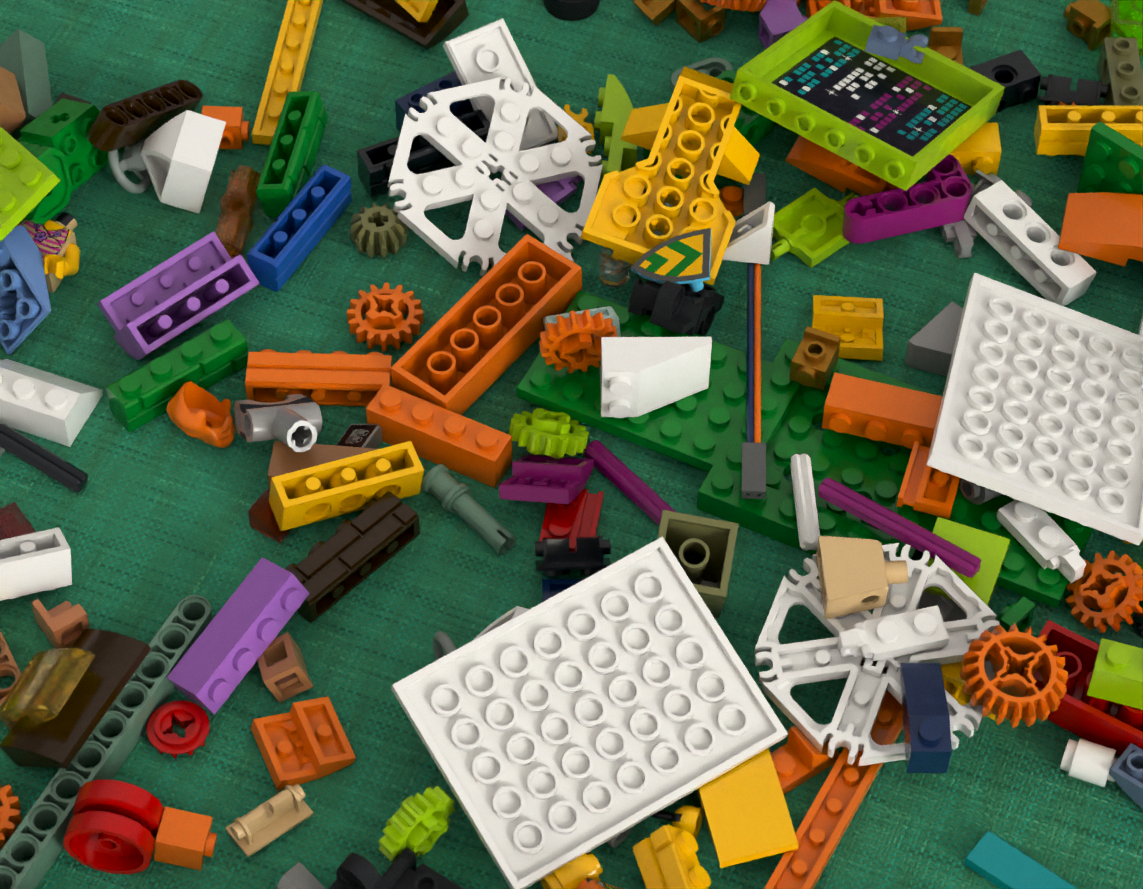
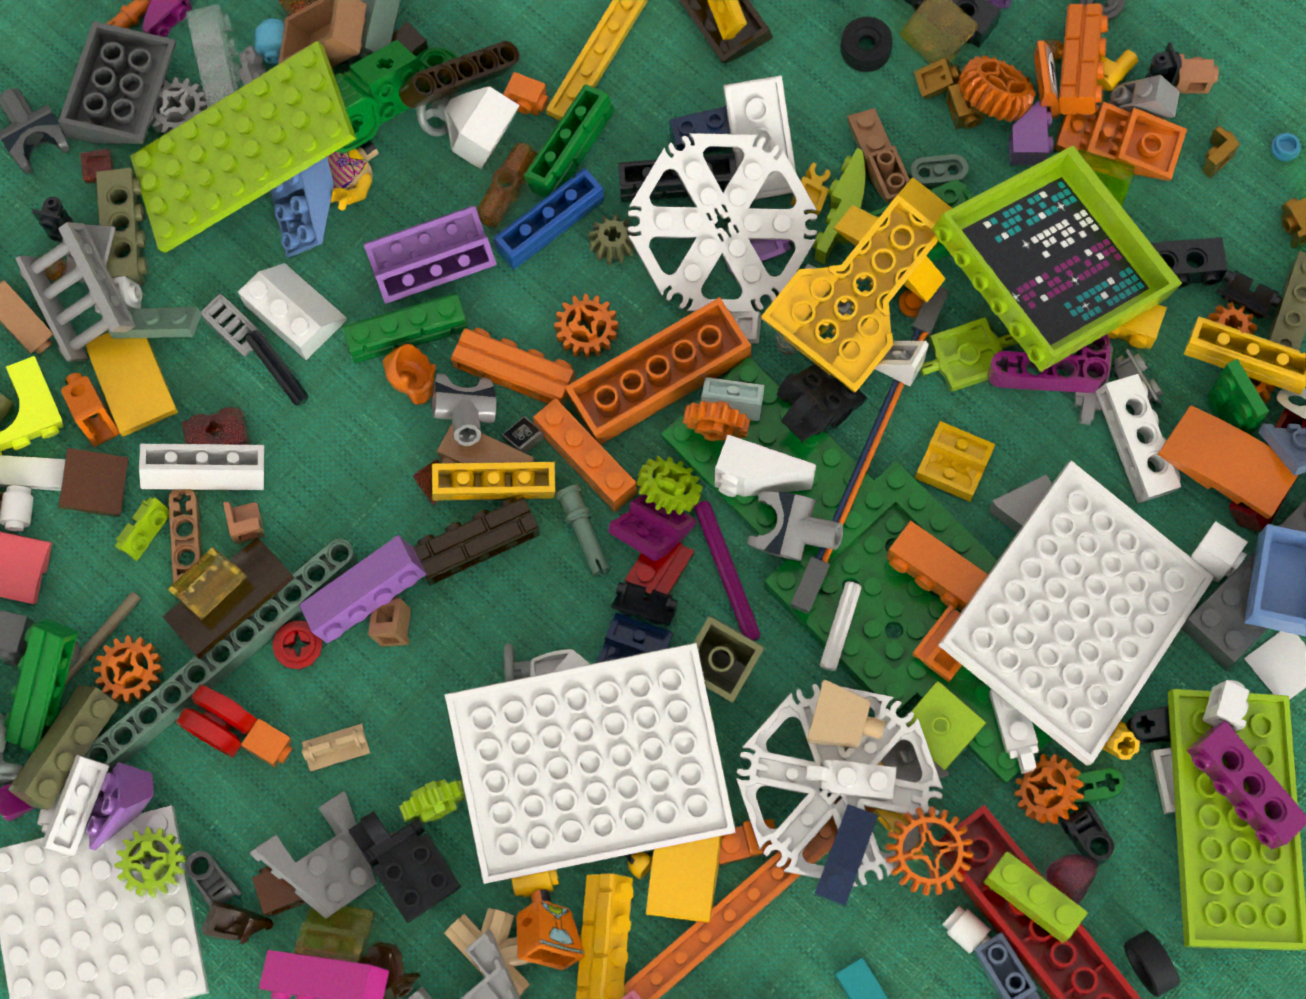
camera: 25 degrees right, 20 degrees up
(303, 743) = (383, 690): orange slope -> none
(643, 81) = (880, 158): none -> medium nougat slope
(679, 260) = (827, 371): shield -> none
(710, 419) = (795, 527): none -> light grey connector
(815, 358) = (902, 509): pearl gold brick -> none
(891, 44) = (1098, 211): sand blue plate -> none
(899, 527) = (902, 679): magenta axle -> none
(947, 42) = (1160, 212): pearl gold bracket -> none
(1020, 614) = (964, 784): green plate -> none

